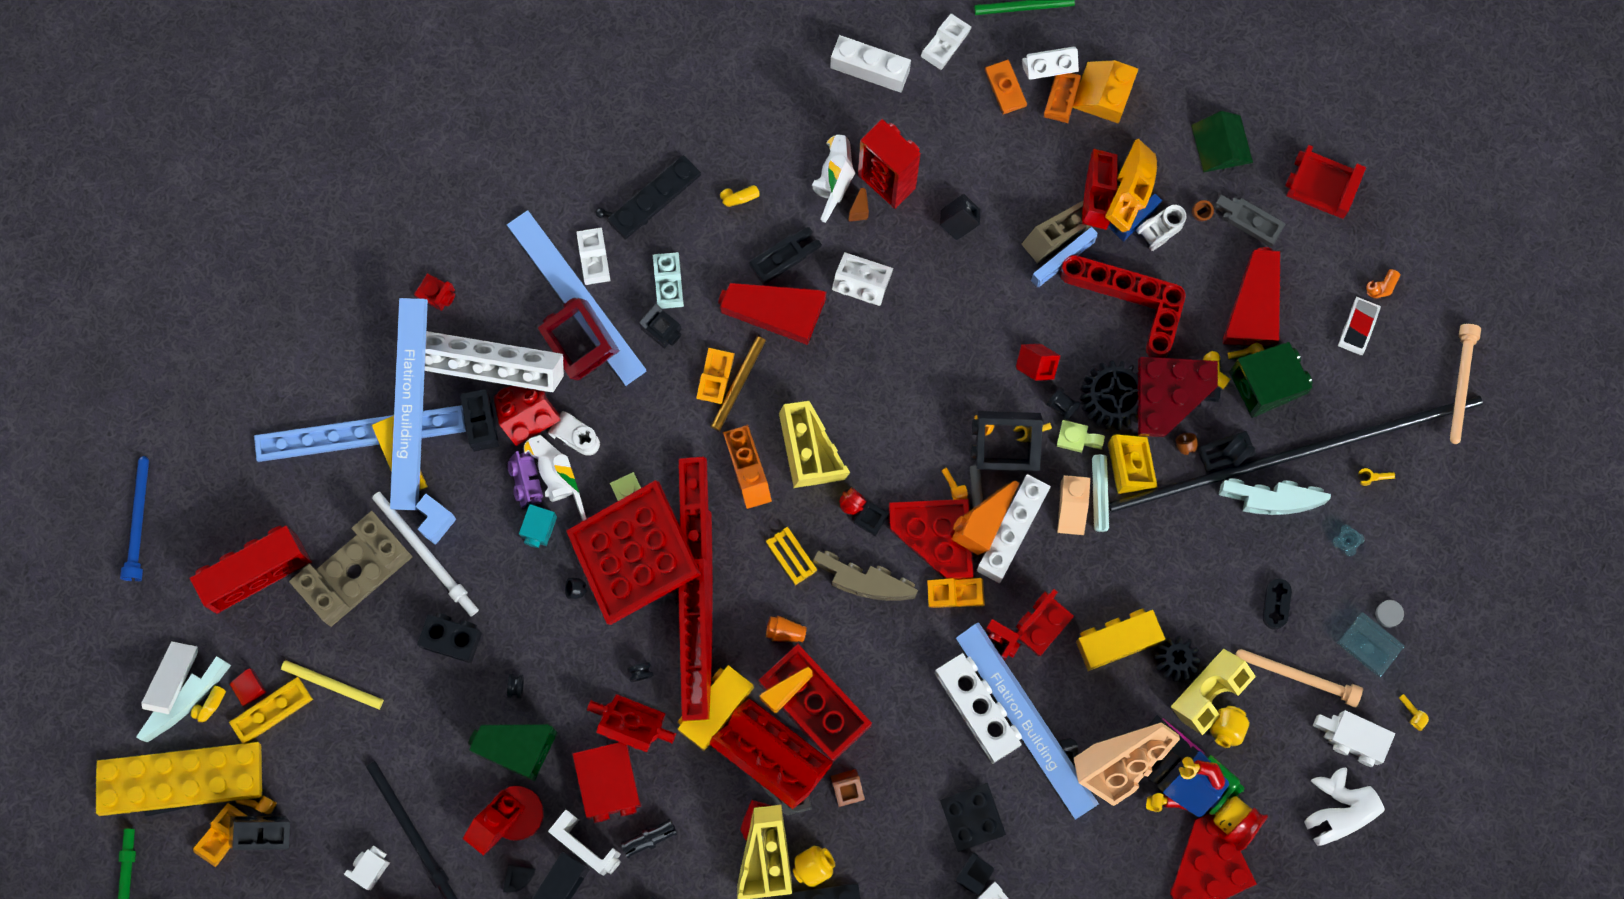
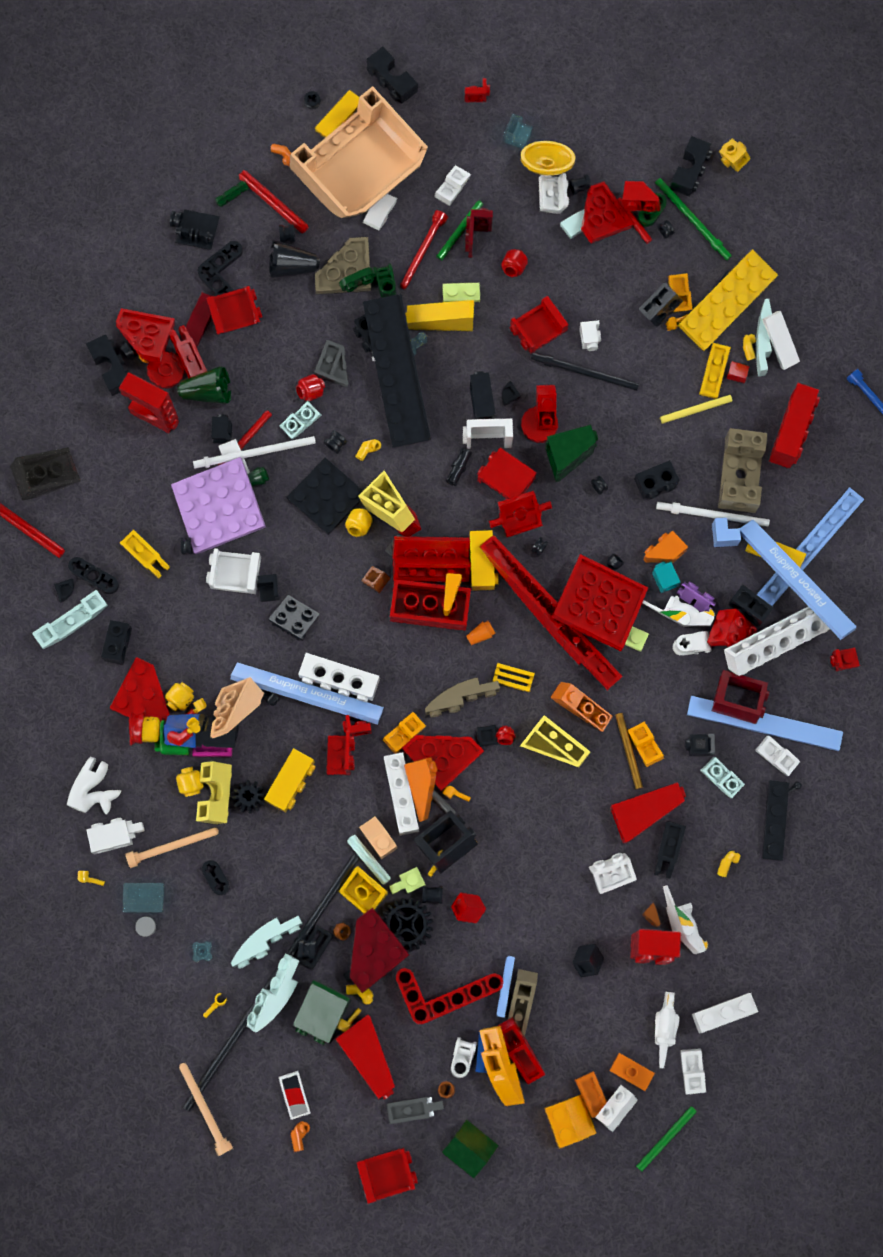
camera: 140 degrees right, 0 degrees up
(508, 553) = (667, 550): none -> orange slope
(937, 98) = (666, 1027): none -> white animal
(1169, 831) = (179, 696): none -> yellow head
(1310, 430) = (270, 1002): none -> light aqua slope

